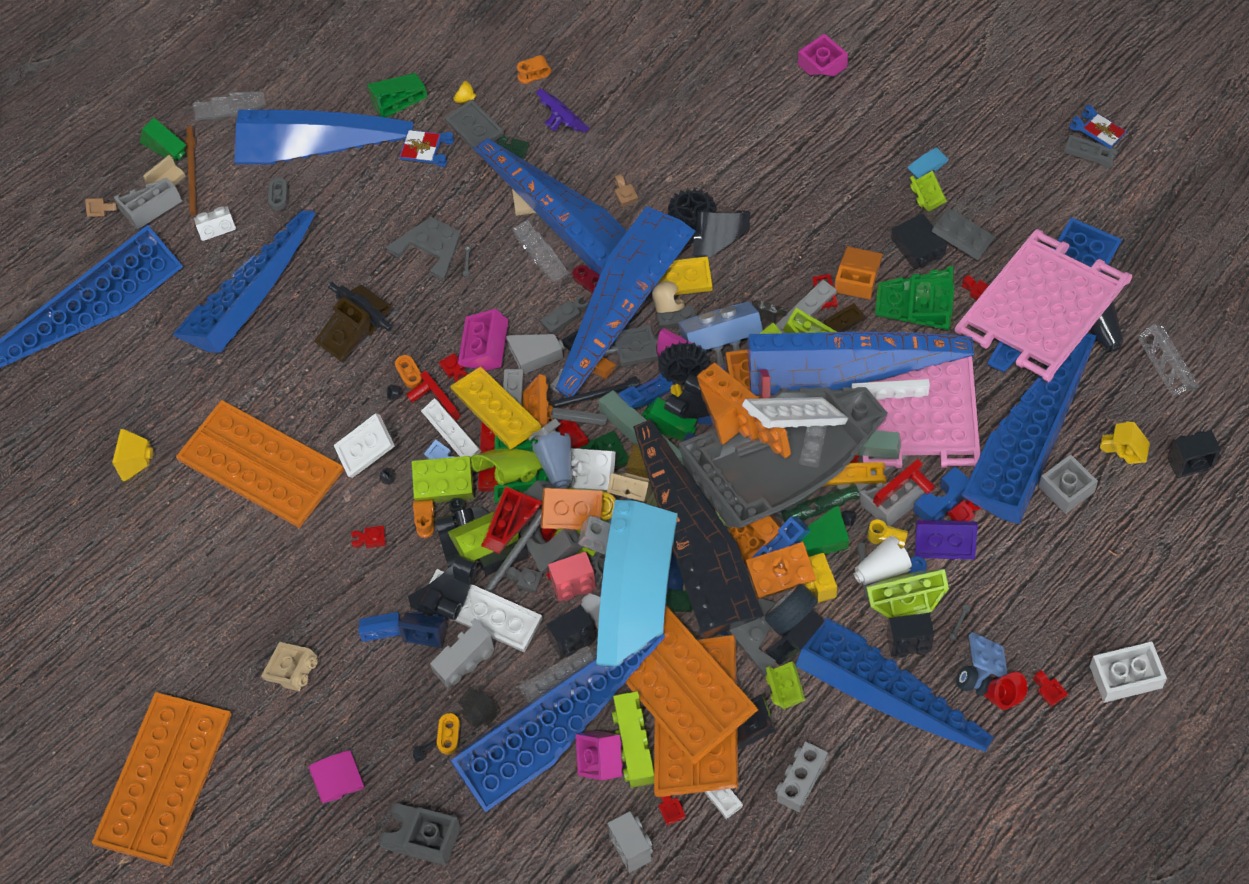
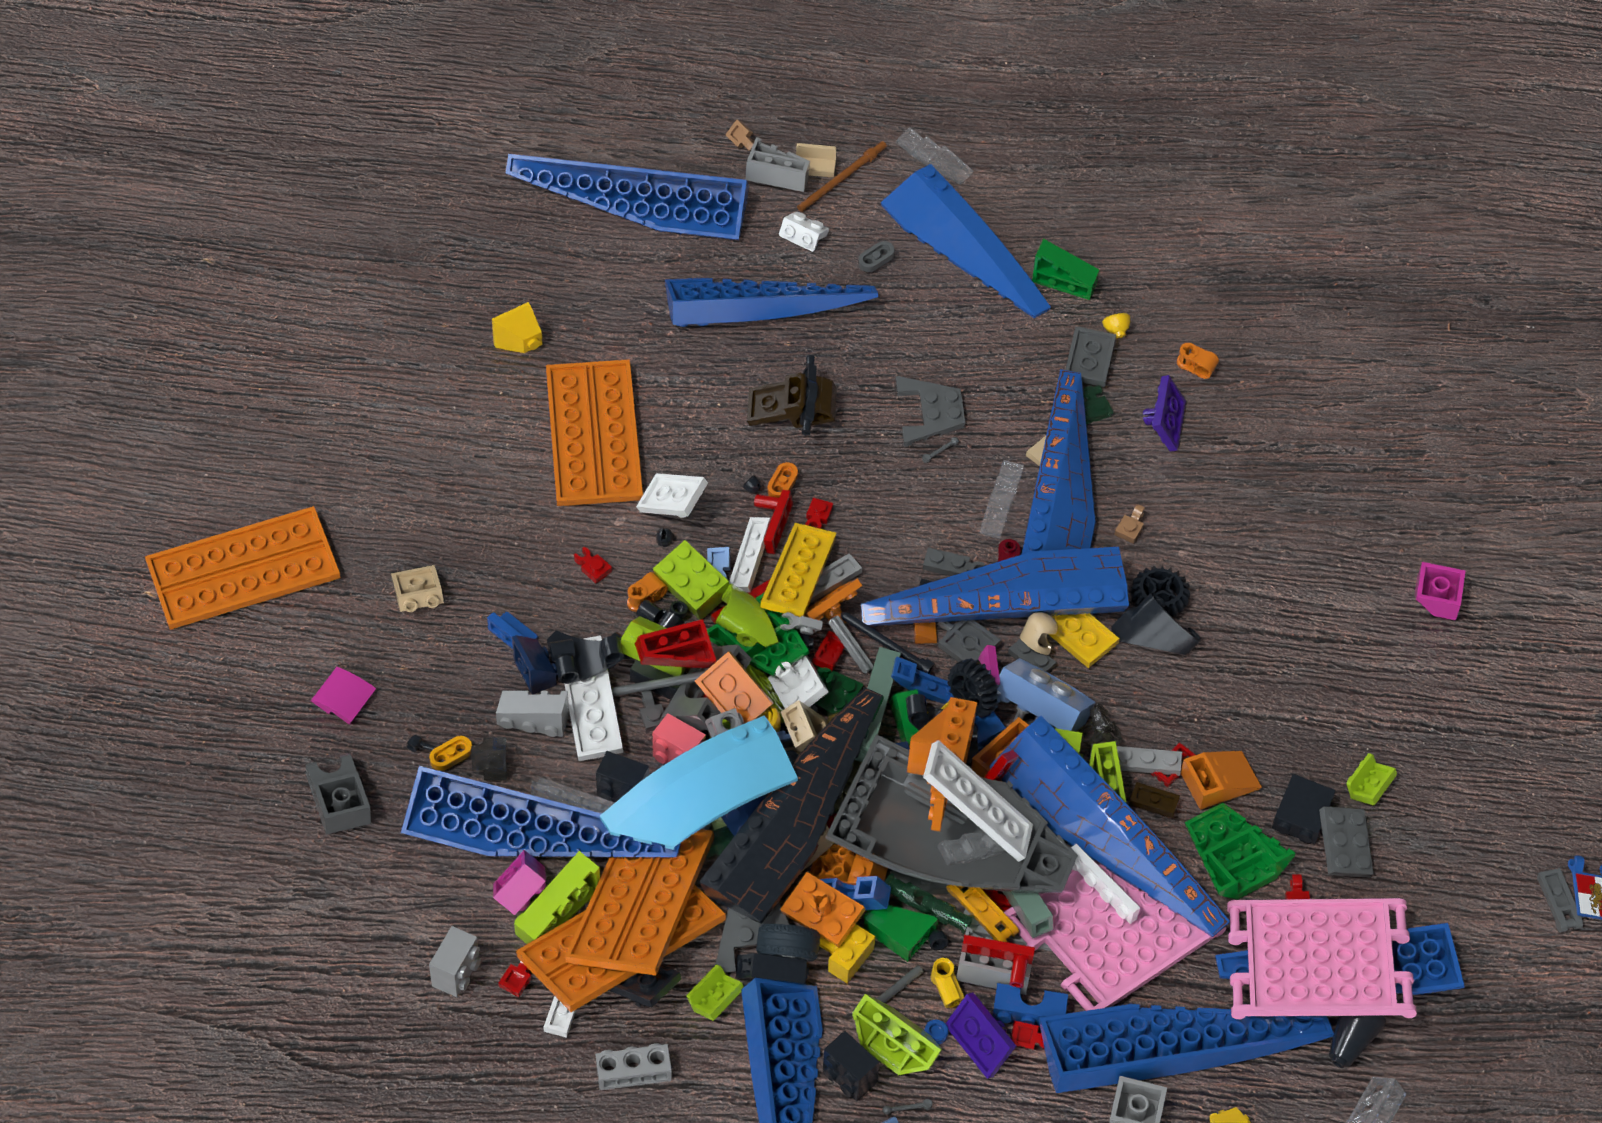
camera: 45 degrees right, 5 degrees down
(162, 141) = (848, 132): green slope -> none
(423, 147) = (1031, 331): flag -> none
(483, 340) = (864, 517): dark pink slope -> none
(534, 350) = (890, 564): light grey slope -> none
(555, 458) = (776, 646): sand blue cone -> none
(883, 562) = (907, 995): white cone -> none
(928, 162) = (1410, 762): dark azure slope -> none

